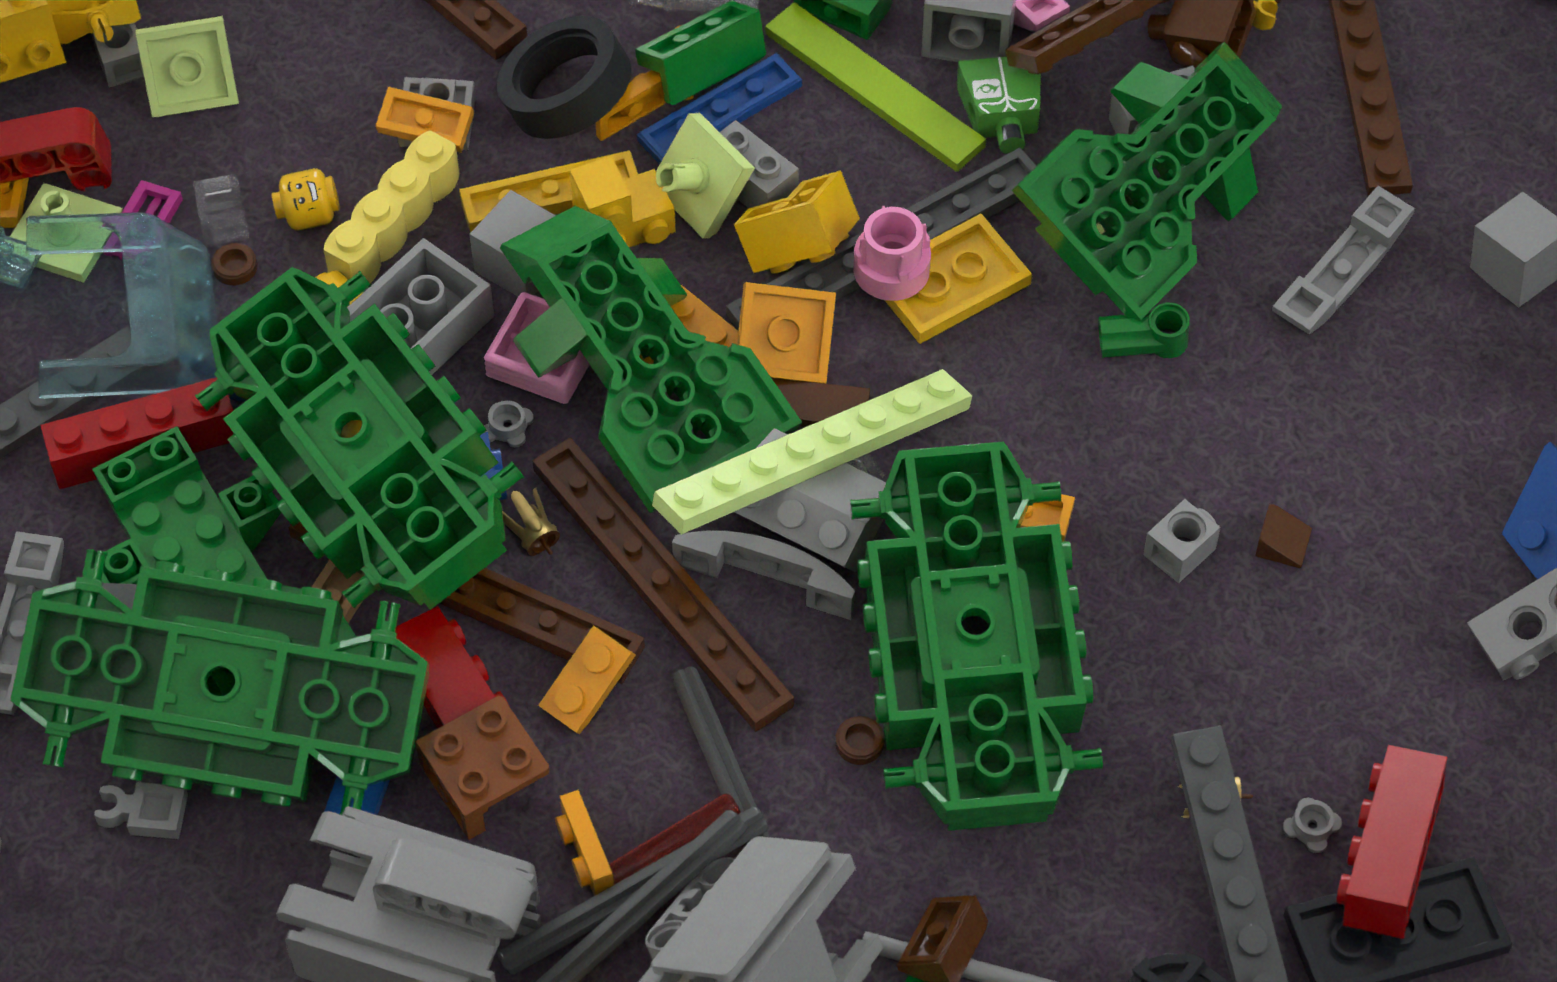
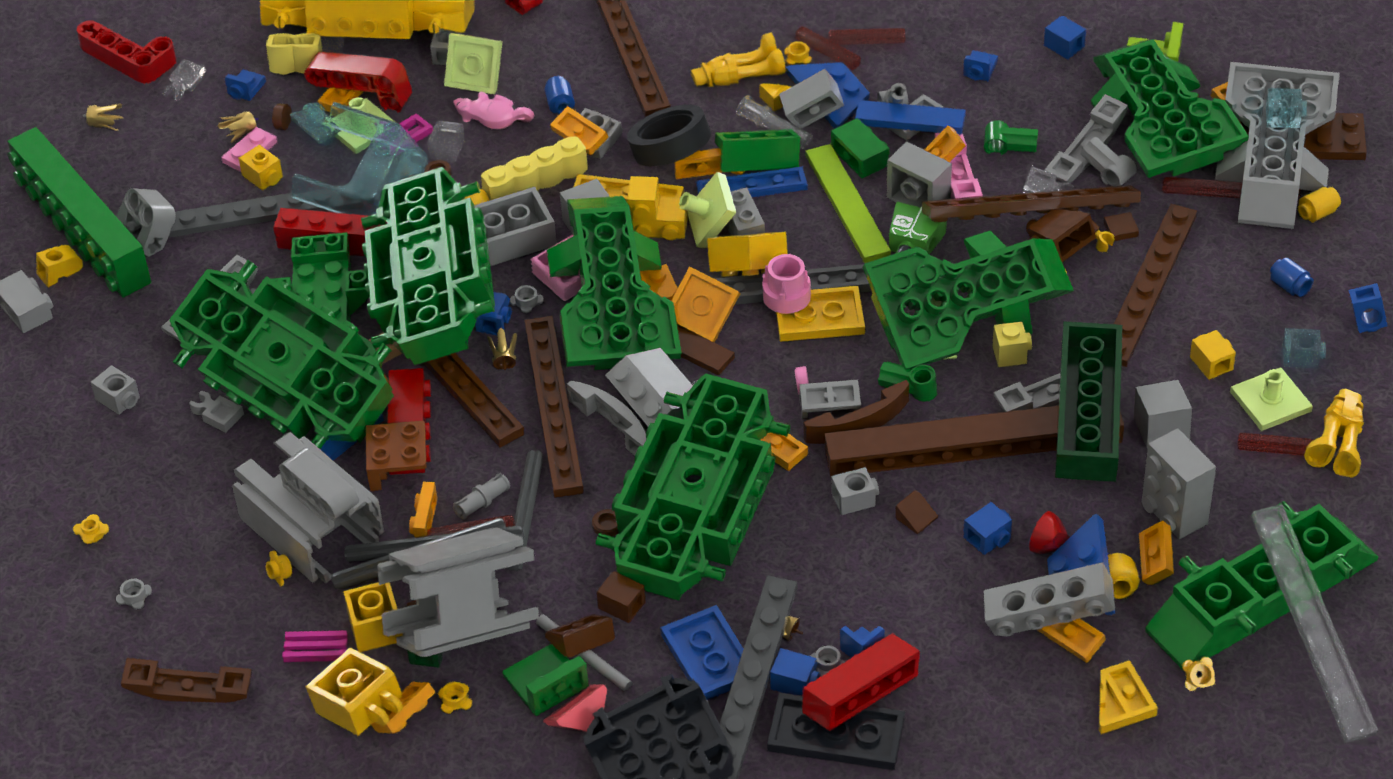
camera: 30 degrees right, 10 degrees down
(264, 137) = (492, 113): none -> bright pink animal
(306, 199) = (493, 150): yellow head -> none
(346, 69) = (559, 94): none -> blue brick
(587, 680) = (479, 435): light orange plate -> none
(649, 777) = (481, 496): none -> light grey pin
(810, 451) = (670, 363): yellowish green plate -> none
(965, 854) = (621, 597): none -> reddish brown panel
(997, 394) = (801, 376): none -> bright pink tile
(1057, 408) = (829, 396): none -> light grey hinge
(1086, 456) = (874, 415): none -> reddish brown slope
(1138, 885) = (705, 650): none -> blue plate
(1249, 222) = (1011, 344): none -> light yellow brick
(1286, 389) = (944, 441): none -> reddish brown brick
(1290, 865) = (793, 672): none -> blue brick
(1345, 777) = (856, 642): none -> blue panel
(1401, 521) = (988, 528): none -> blue brick
(1438, 274) = (1089, 402): none -> dark green brick
(1493, 498) = (1048, 534): none -> red piece
(1518, 130) = (1212, 354): none -> yellow brick

